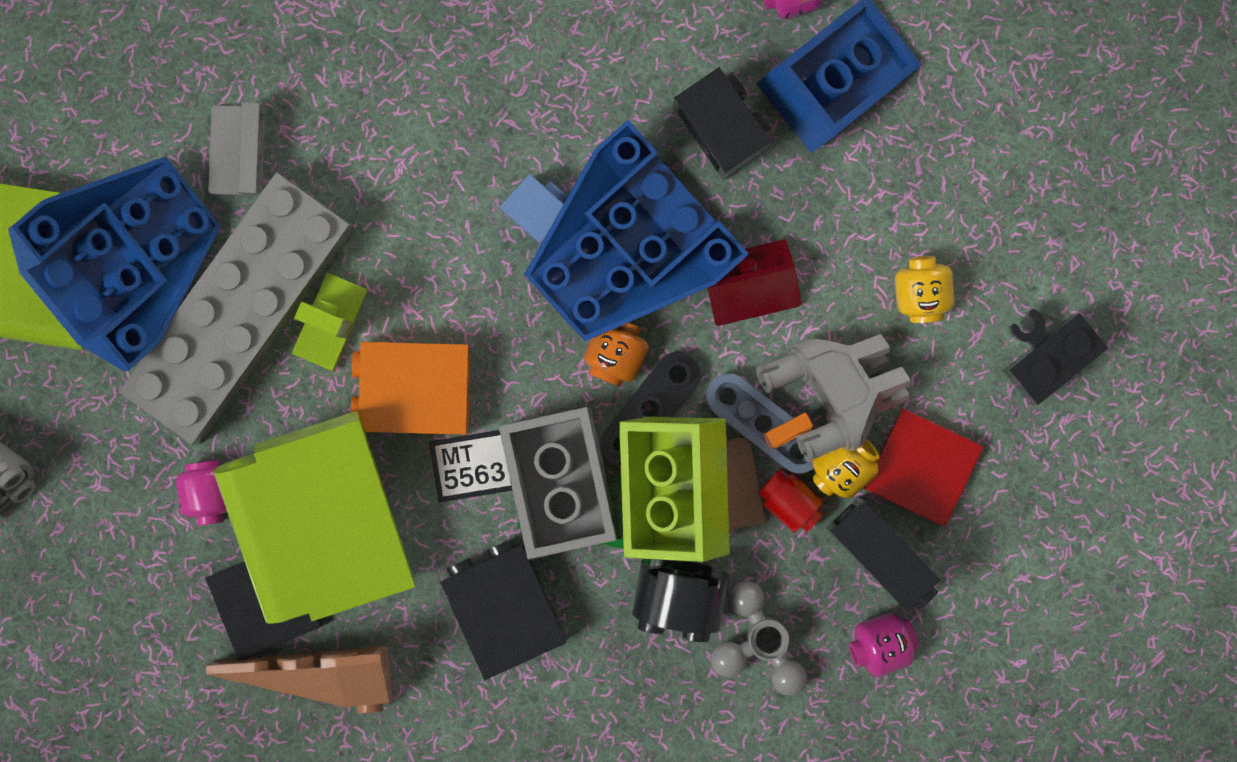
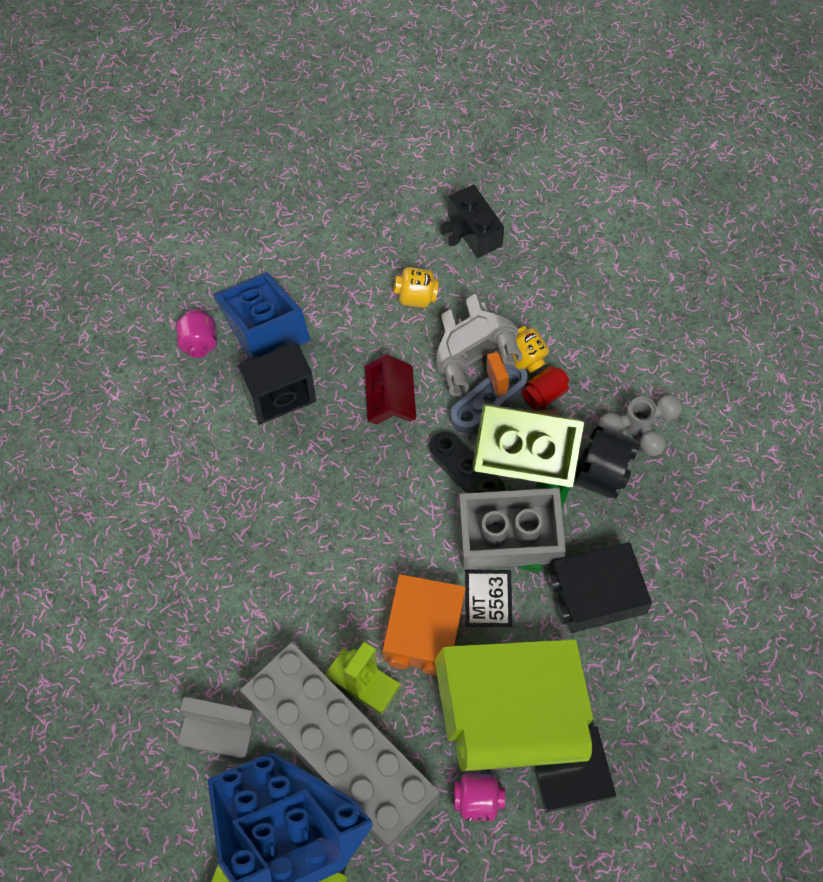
camera: 80 degrees left, 25 degrees down
(335, 677) = (638, 712): nougat wedge -> none
(534, 207) = (310, 517): medium blue brick -> none
(617, 354) = (422, 481): orange head -> none
(628, 240) = (346, 455): blue wedge -> none
(884, 555) = (590, 330): black brick -> none
(884, 644) = (652, 346): dark pink head -> none
(924, 467) = (536, 306): red tile -> none

